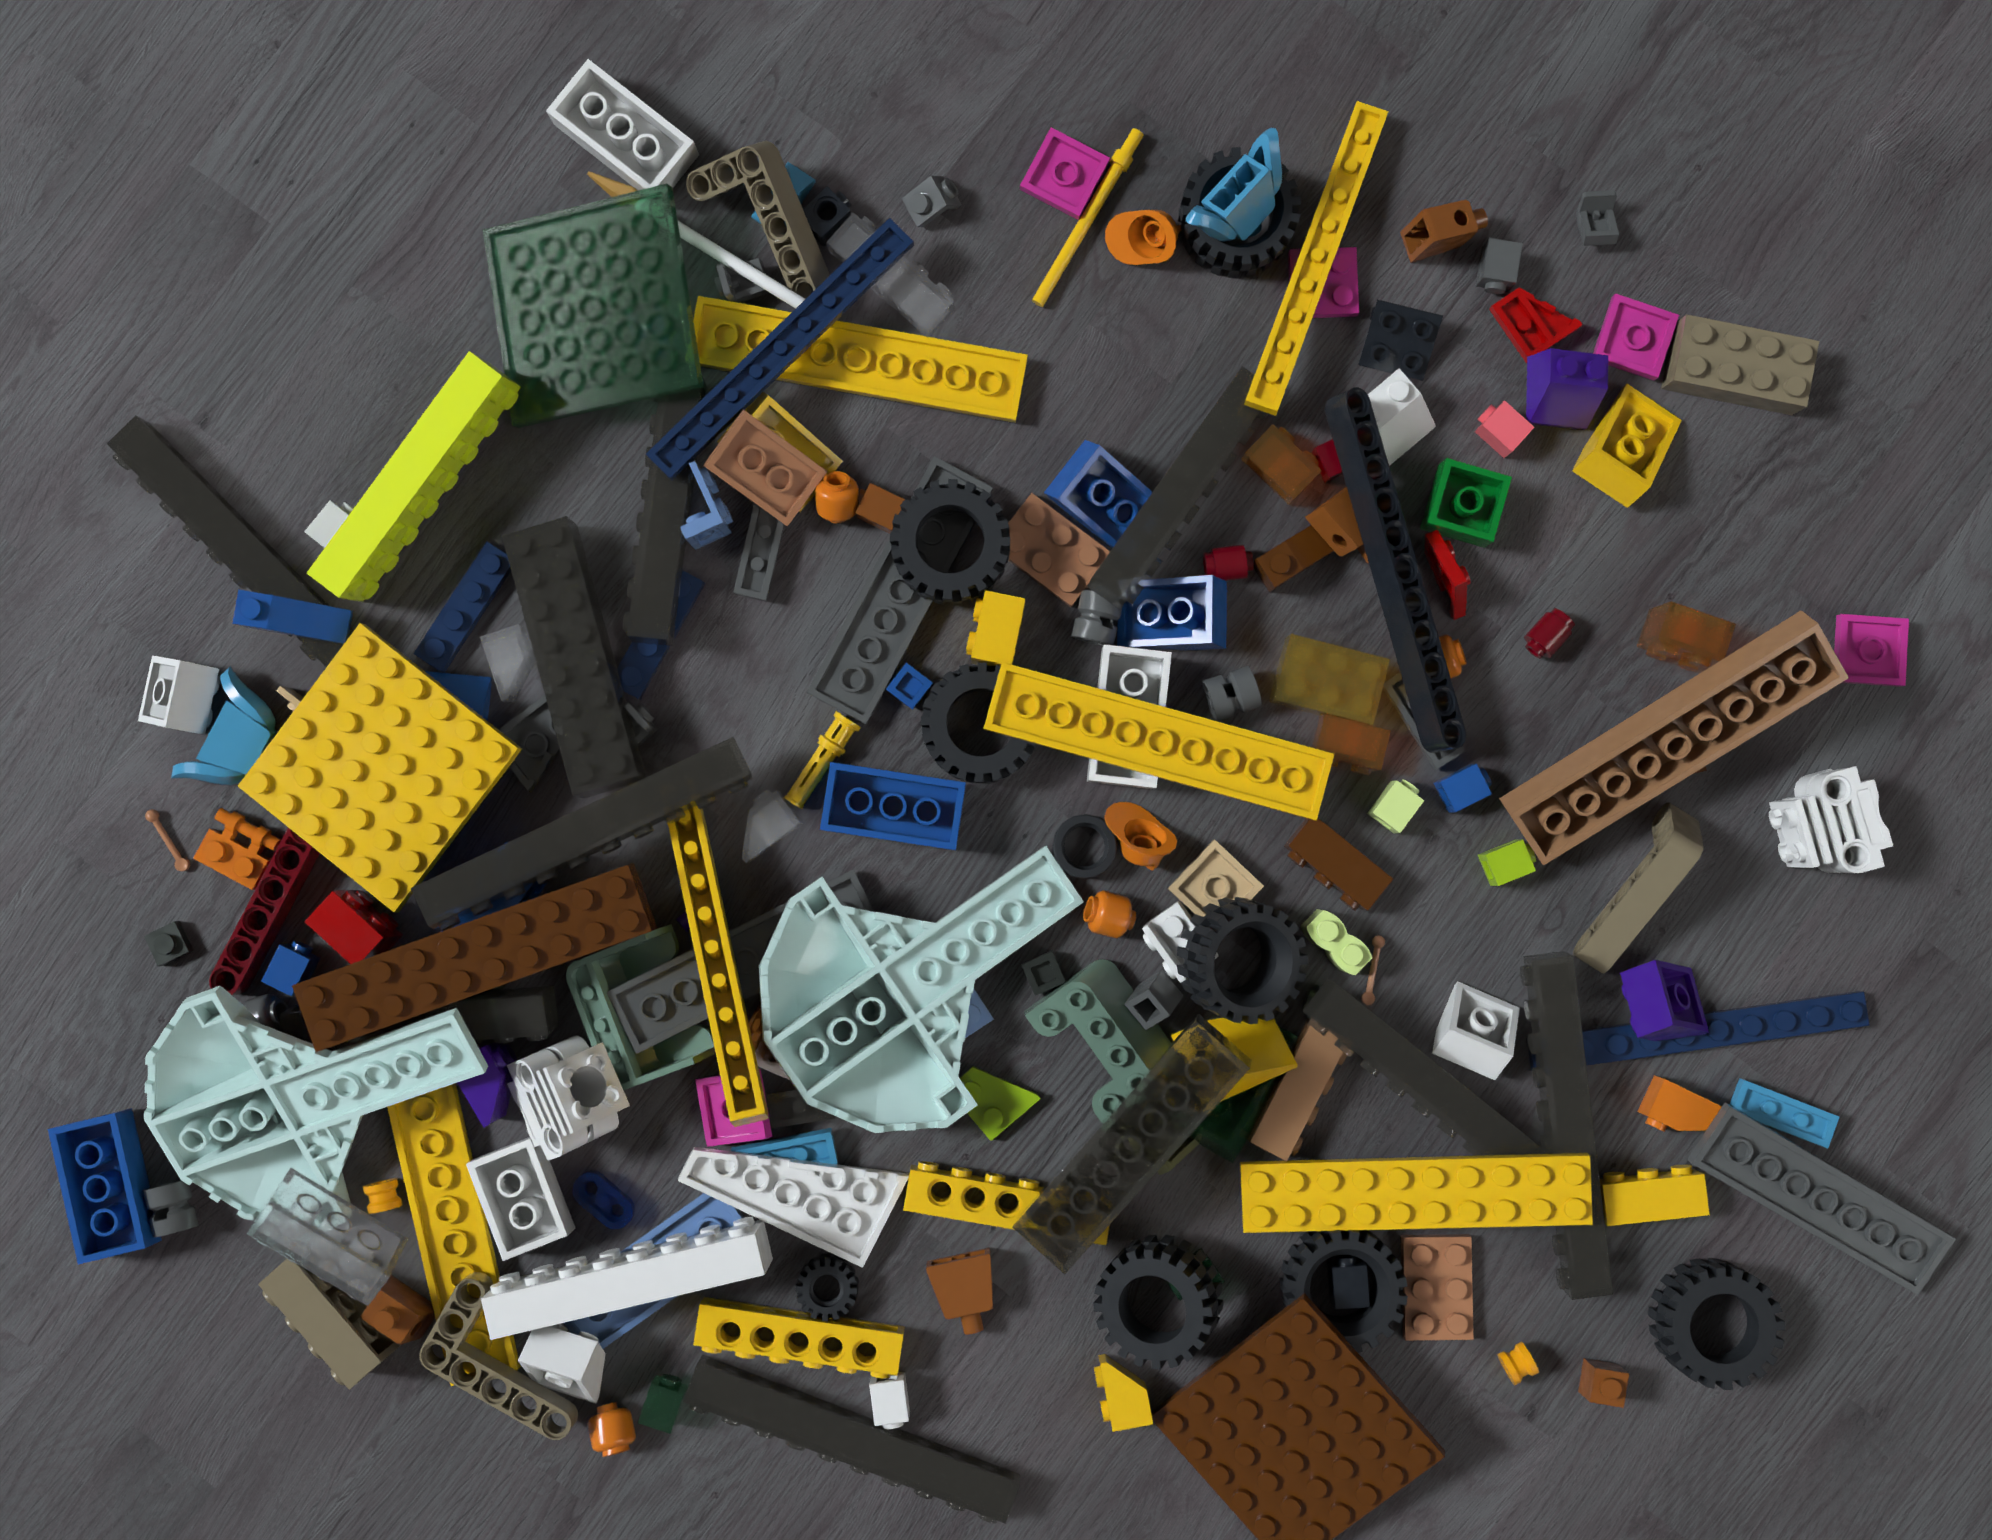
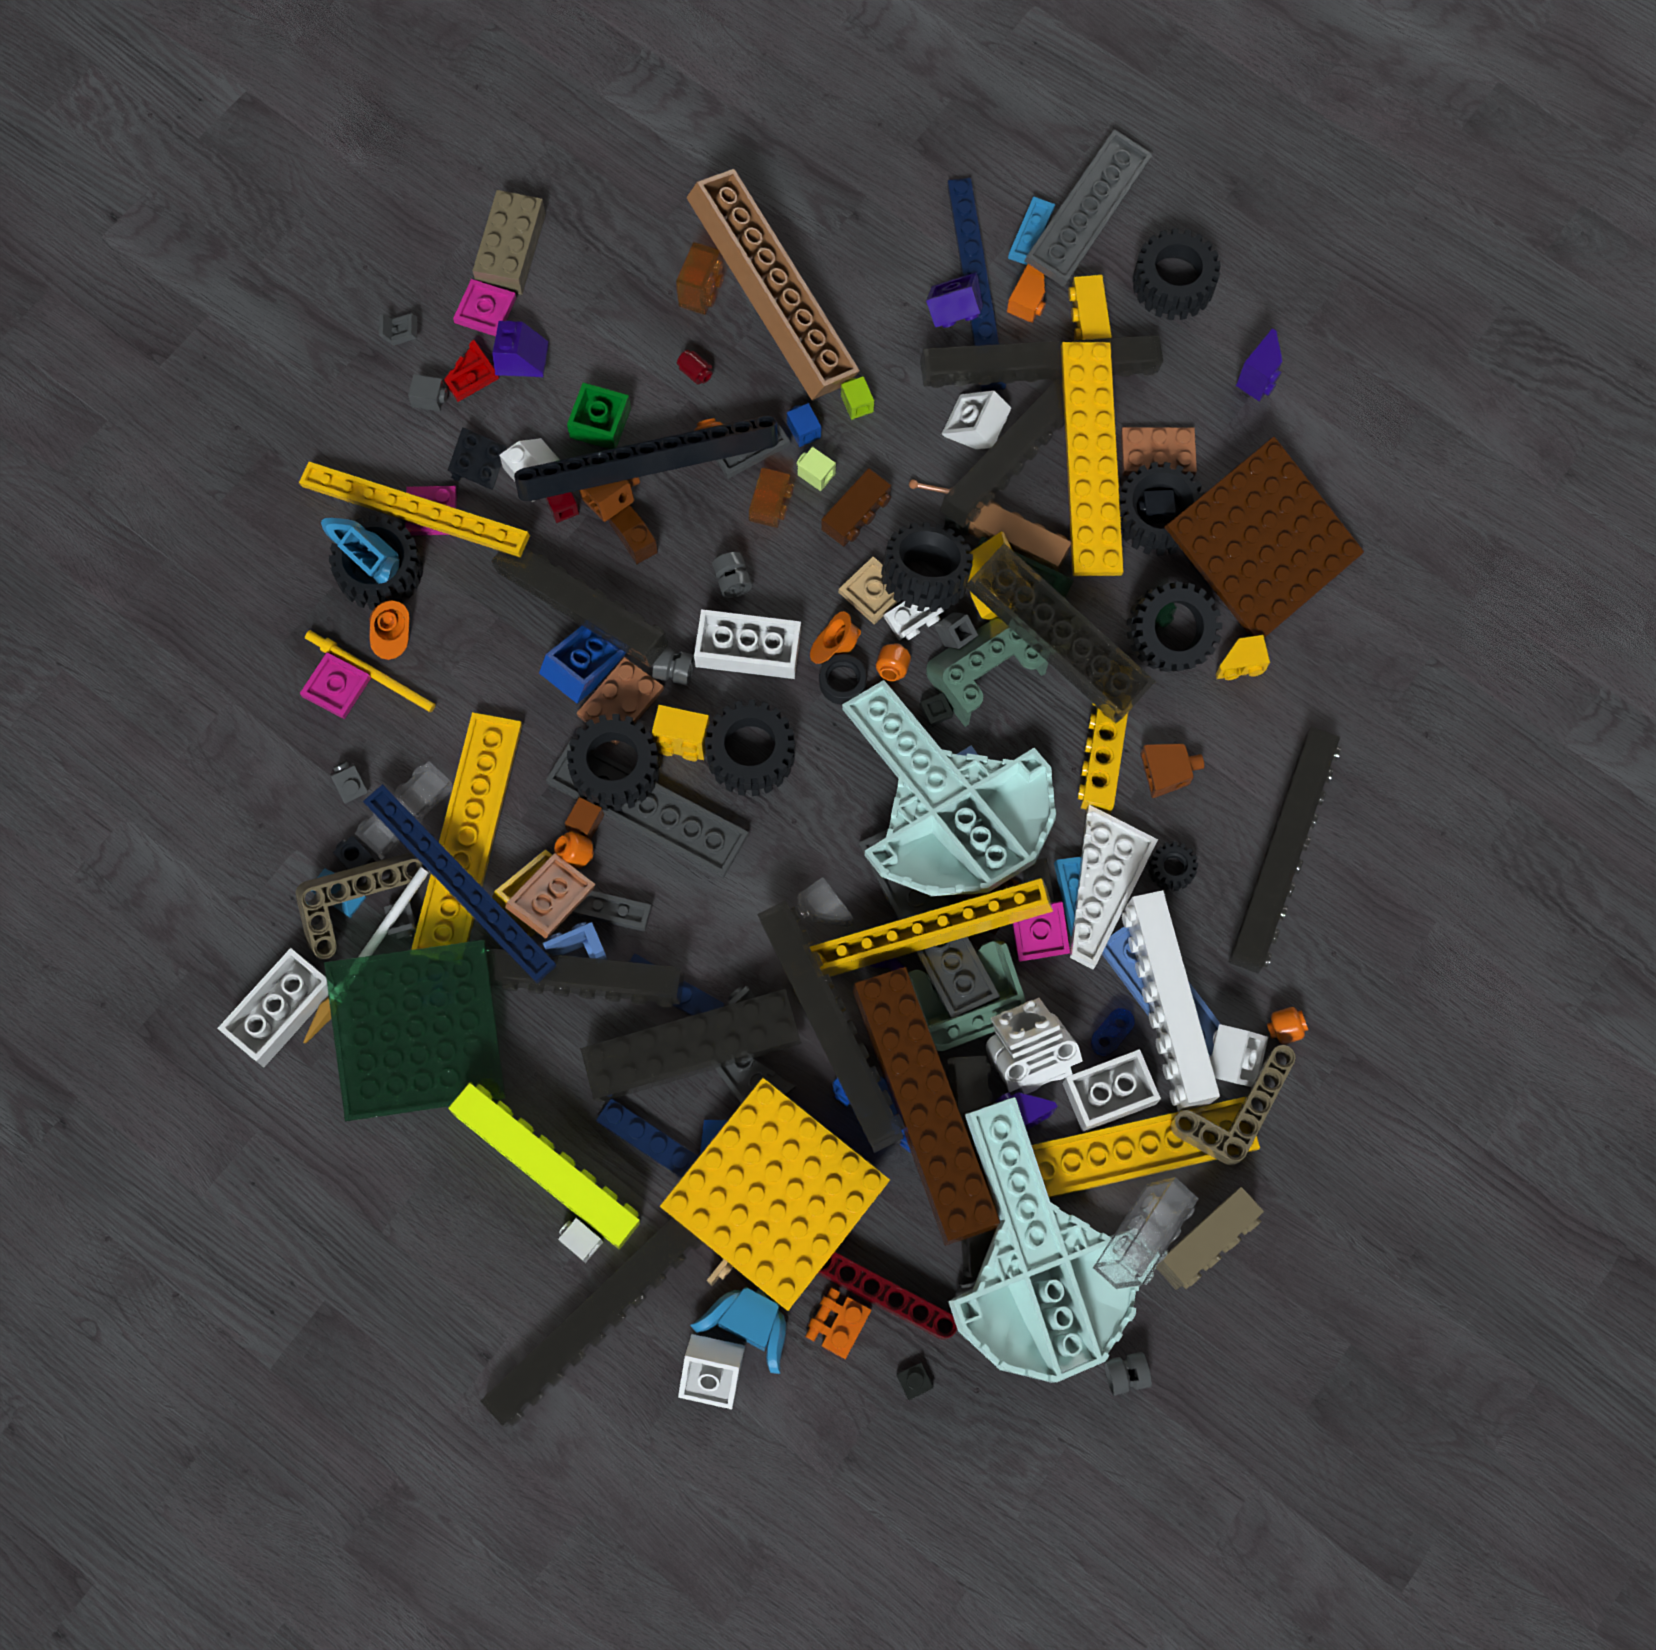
camera: 90 degrees left, 15 degrees down
(103, 1185) = (1111, 1426): blue brick -> none
(181, 864) = (850, 1371): nougat hinge -> none
(290, 966) = (934, 1275): blue brick -> none
(292, 617) = (652, 1263): blue slope -> none
(353, 925) = (902, 1218): red brick -> none
(382, 1195) = (1114, 1202): light orange wheel -> none
(399, 1312) = (1205, 1185): dark orange torso -> none
(509, 659) = (690, 1100): clear slope -> none
(663, 1403) = (1265, 986): clear green brick -> none
(784, 1322) = (1197, 948): yellow brick -> none
(830, 746) = (764, 857): yellow pin -> none
(890, 1401) = (1255, 821): white brick -> none
(893, 806) = (811, 810): blue brick -> none
(909, 686) = (720, 801): blue plate -> none
(997, 1101) = (1034, 736): lime wing -> none
(1158, 741) = (766, 618): yellow plate -> none
(1176, 615) = (674, 608): blue slope -> none
(1228, 562) = (635, 577): dark red brick -> none
(1282, 463) = (564, 538): clear orange brick -> none
(1329, 680) = (723, 510): clear yellow brick -> none
(1341, 949) = (915, 508): yellowish green brick -> none
(1442, 229) = (397, 419): dark orange torso -> none
(1447, 572) = (648, 428): red wing -> none
(1503, 428) = (546, 392): coral brick -> none
(1518, 1363) = (1209, 399): light orange wheel -> none
(1564, 1444) = (1262, 368): none -> dark purple slope
(1603, 1382) = (1220, 345): dark orange brick -> none
(1627, 446) = (563, 314): yellow slope -> none
(1674, 853) = (878, 305): dark tan beam -> none
(1831, 823) = (831, 193): white piece -> none
(1872, 649) = (710, 161): dark pink plate -> none

